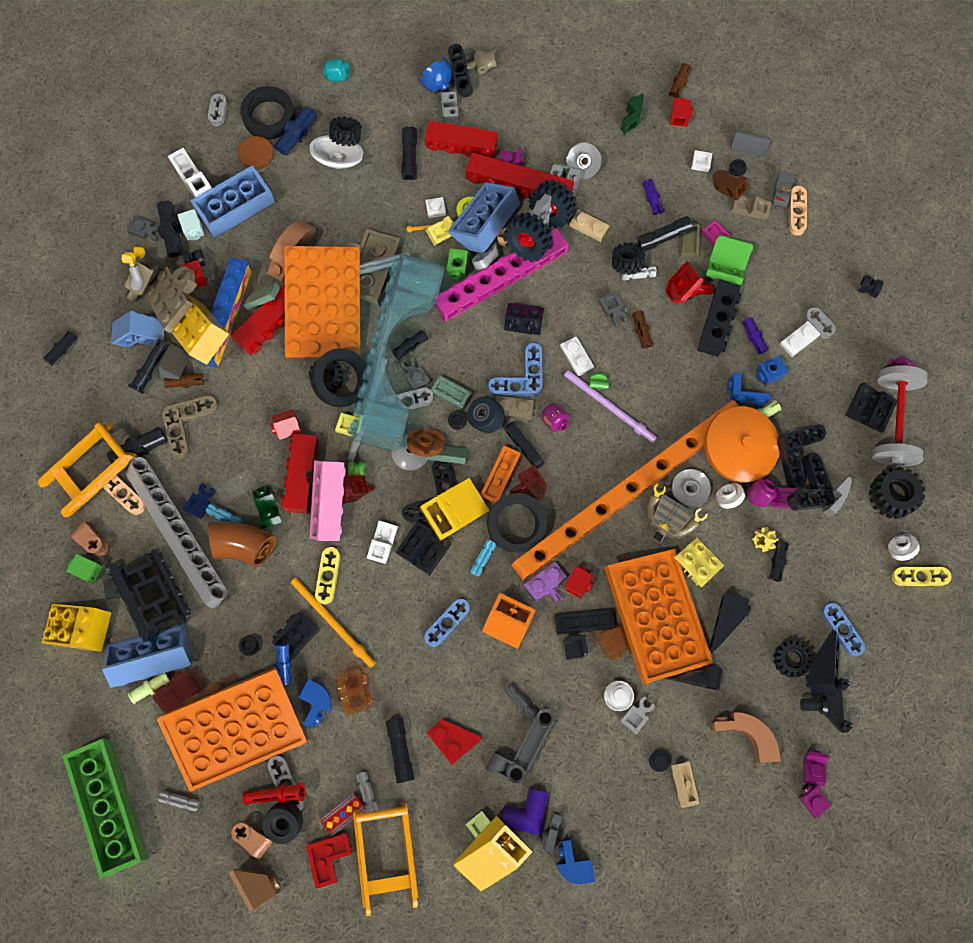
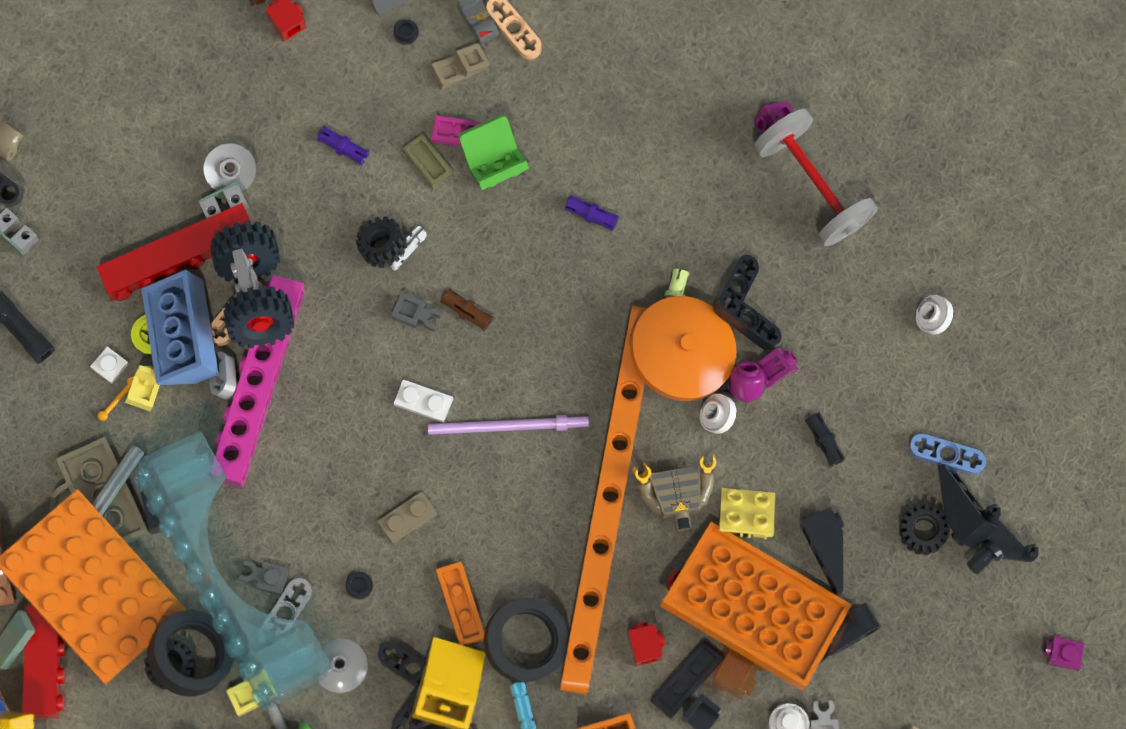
camera: 45 degrees left, 0 degrees up
(410, 344) = (229, 547): black pin -> none
(425, 442) = (350, 640): dark orange tile -> none
(451, 392) = (324, 561): sand green plate -> none
(451, 455) = (383, 632): sand green tile -> none
(460, 139) = (66, 260): red brick -> none
(460, 257) = (194, 399): bright green brick -> none
(485, 414) = (395, 547): black wheel -> none
(512, 157) = (143, 233): magenta bracket -> none
(522, 442) = (447, 547): black beam -> none
(523, 319) = (327, 408): black bracket -> none
(524, 383) = (393, 480): medium blue beam -> none
(528, 479) = (495, 584): clear red piece -> none
(546, 583) = (612, 675): medium lavender plate -> none
(555, 417) = (463, 489): magenta head -> none
(589, 225) = (302, 238): tan plate -> none
(598, 380) = (472, 409): bright green plate -> none
(634, 110) = (231, 57): dark green slope -> none
(677, 228) = (404, 162): black axle -> none
(686, 283) = (469, 219): red piece -> none
(697, 481) = (673, 428): light grey dish -> none
(701, 161) = (359, 57): white plate -> none
(723, 292) = (549, 264): black brick -> none
(730, 185) = (415, 62): reddish brown leg -> none
(741, 397) = (620, 290): blue bracket -> none
(762, 738) = (954, 635): nougat arch -> none
(765, 539) = (791, 422): light yellow gear -> none
(771, 371) = (642, 239): blue brick -> none
(800, 339) = (641, 175): white plate -> none
(815, 768) = (1037, 620): magenta bracket -> none
(817, 490) = (800, 328): black beam -> none
(820, 322) = (647, 133): light grey beam -> none
(840, 494) = (825, 312): light grey slope -> none
(870, 286) = (664, 52): black wheel -> none
(877, 403) = (788, 187): black slope -> none
(908, 483) = (871, 280): black tyre -> none
(926, 570) = (984, 311): light yellow beam -> none

